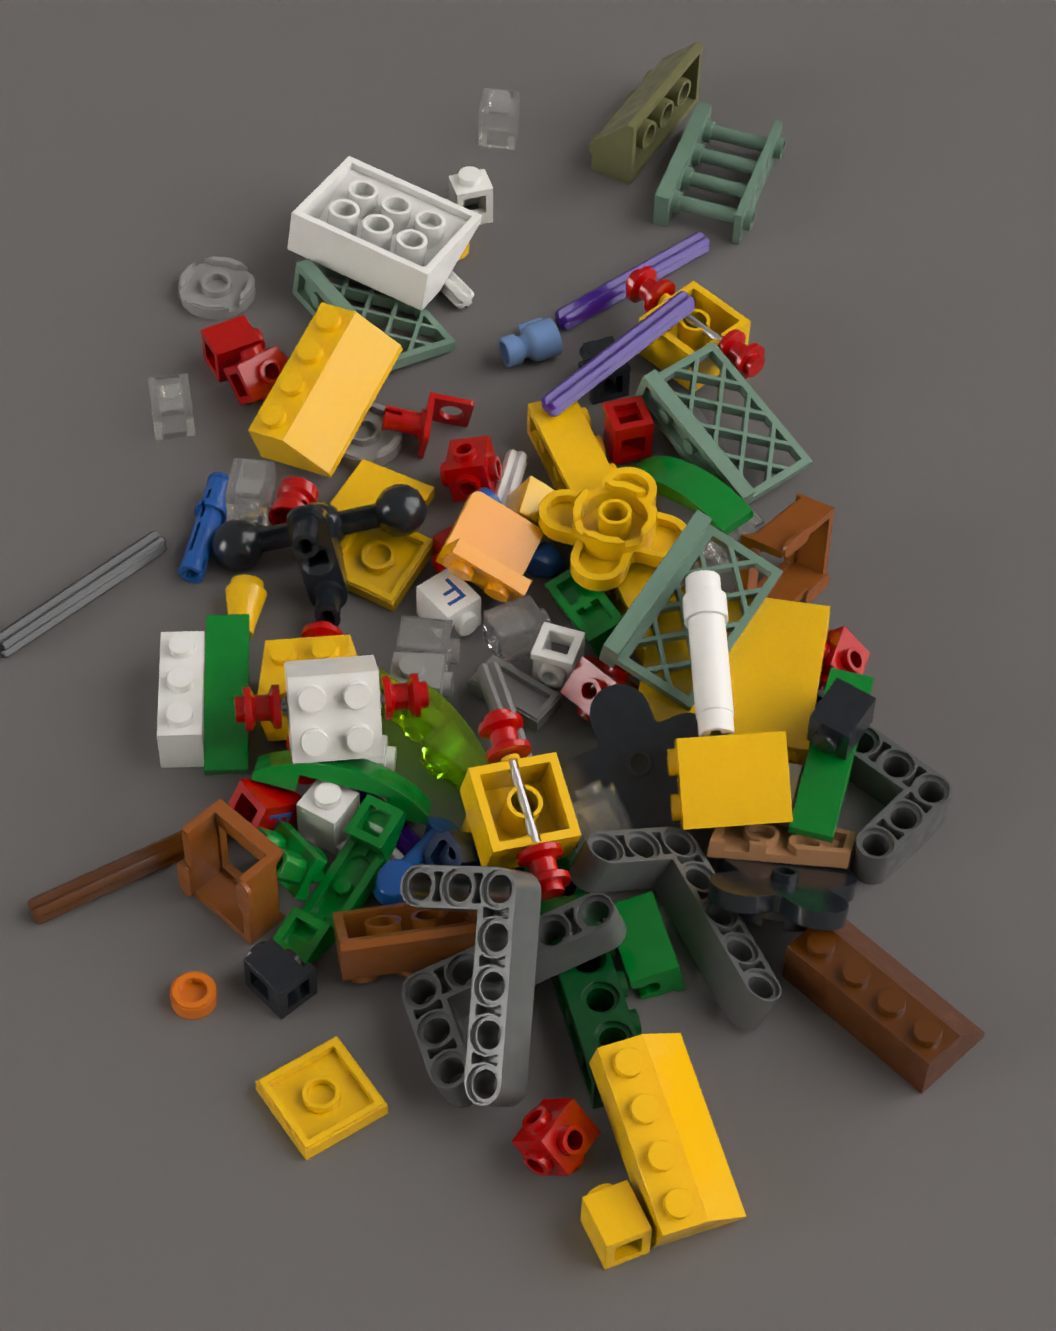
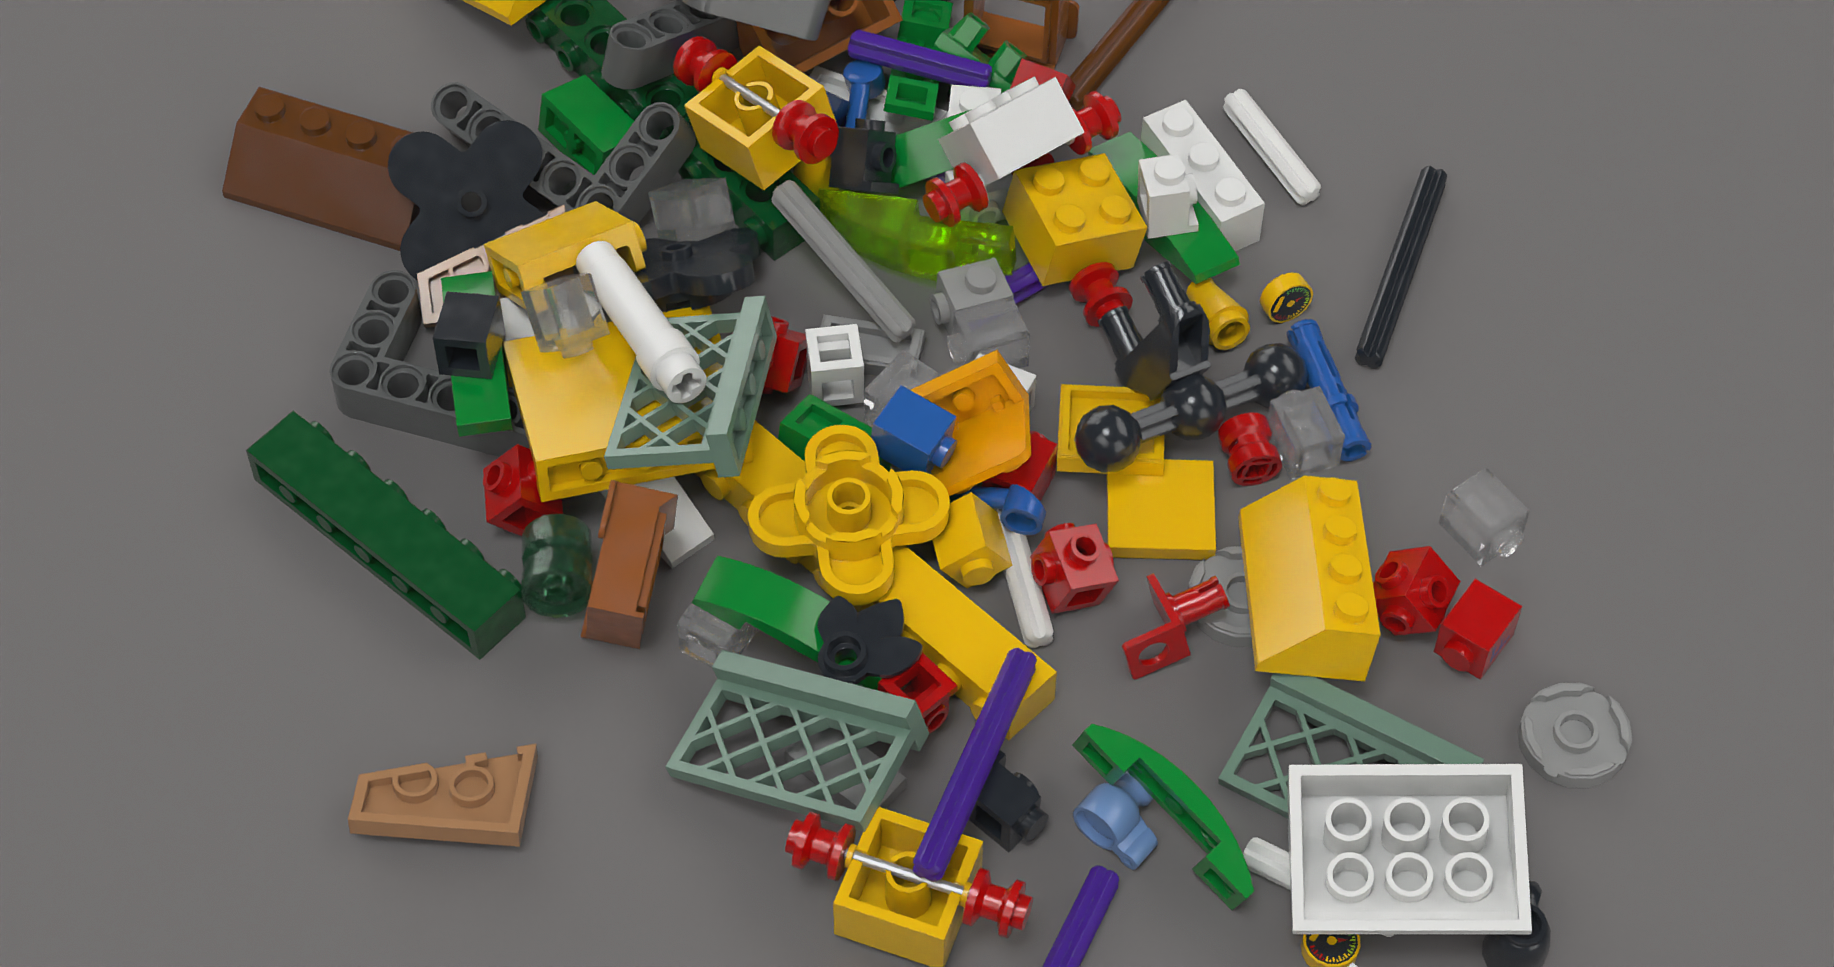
camera: 155 degrees right, 5 degrees up
(101, 719) = (1272, 147): none -> white axle
(186, 594) = (1286, 297): none -> tile
(236, 649) = (1166, 196): none -> white brick
(346, 857) = (918, 60): none -> dark purple axle
(438, 791) = (864, 158): none -> black brick
(518, 325) = (1224, 864): none -> green slope
(539, 556) = (914, 432): none -> blue brick
(650, 445) = (867, 636): none -> black plate
(759, 705) = (566, 314): none -> clear brick
(837, 587) = (556, 565): none -> clear green wheel
(948, 686) = (388, 533): none -> dark green brick
(963, 504) = (455, 803): none -> medium nougat wing

